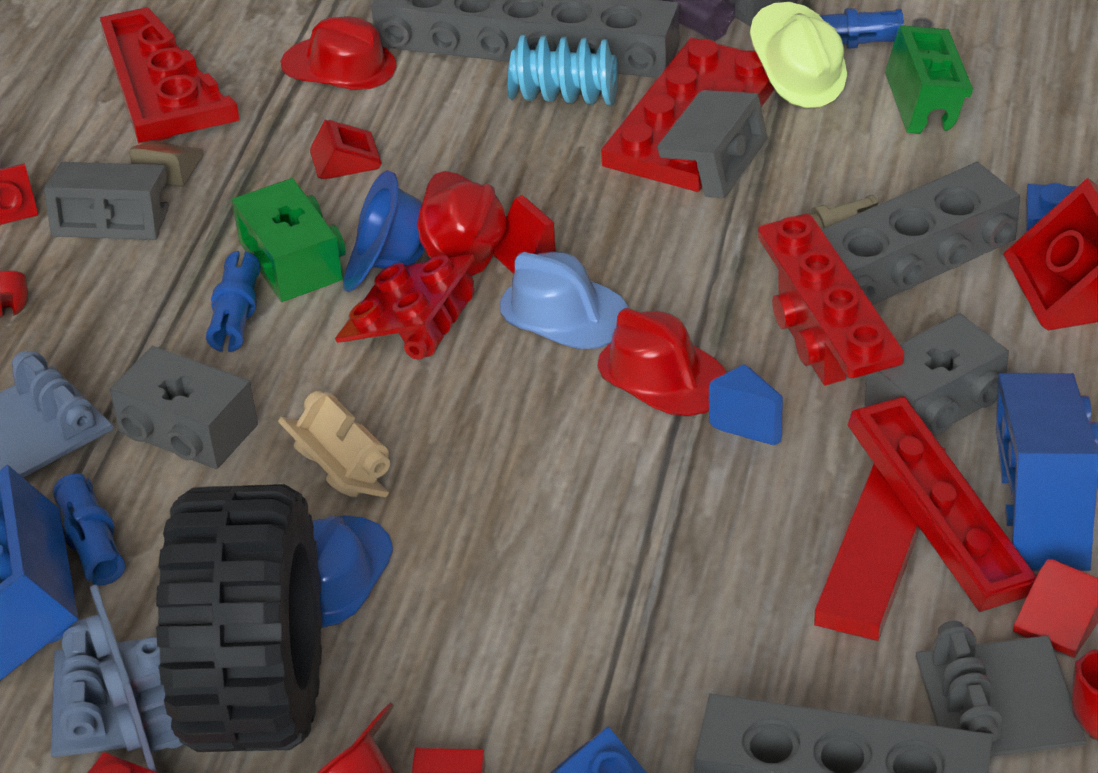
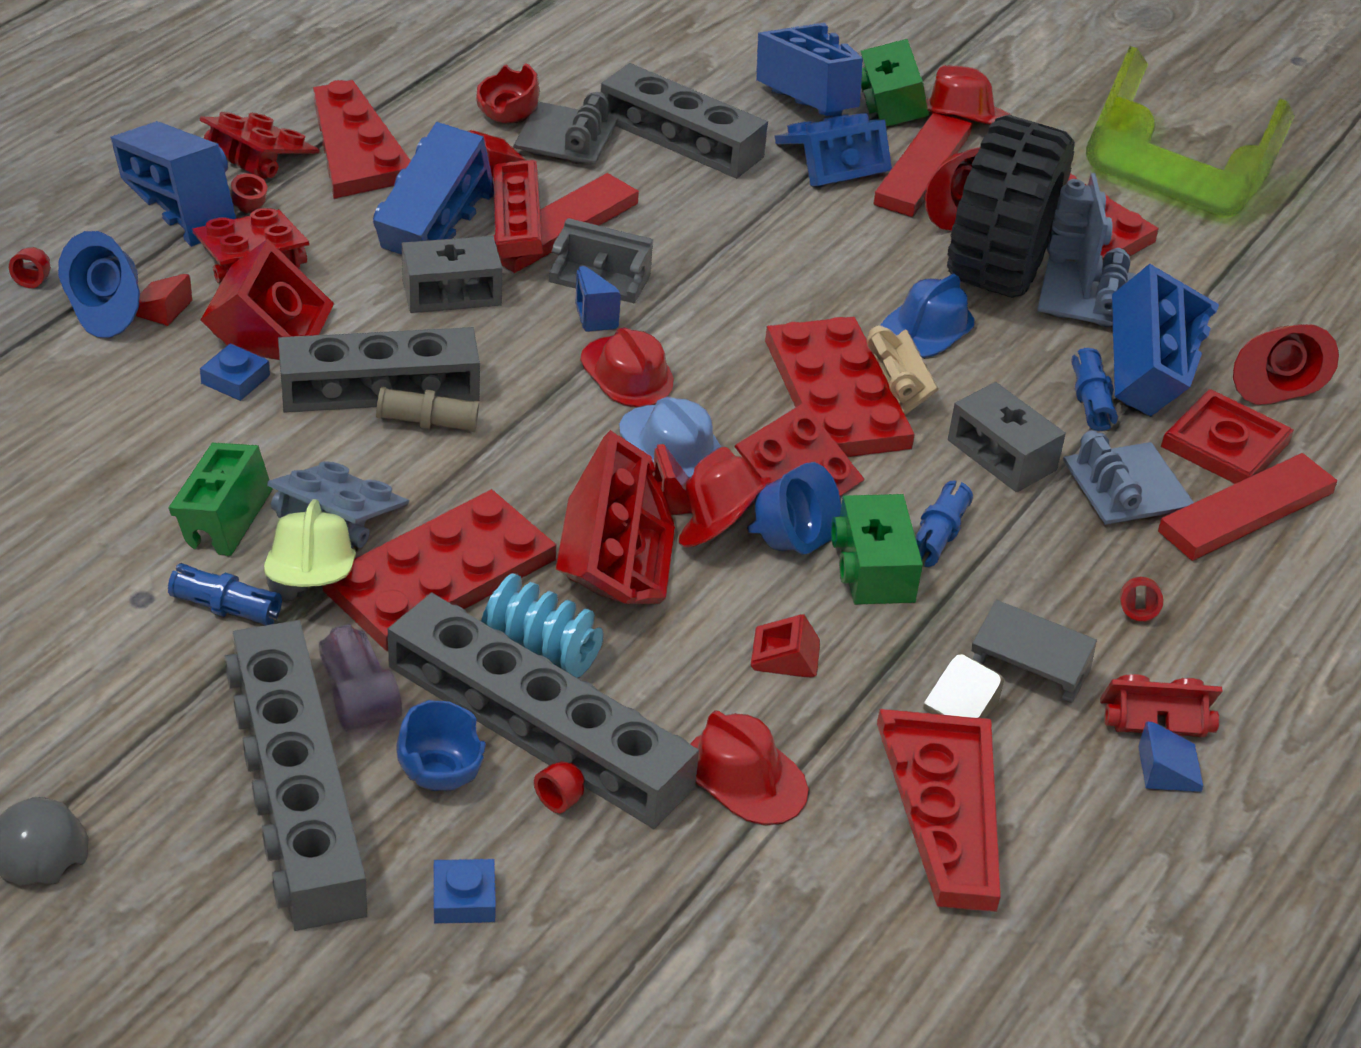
camera: 165 degrees left, 0 degrees up
(436, 442) = (840, 383): none -> red plate
(538, 141) = (618, 527): none -> red wedge
(719, 133) = (456, 500): dark grey panel -> none
(782, 480) = (610, 253): none -> dark grey hinge
(824, 304) = (493, 318): red bracket -> none
(831, 119) = (337, 494): none -> sand blue hinge

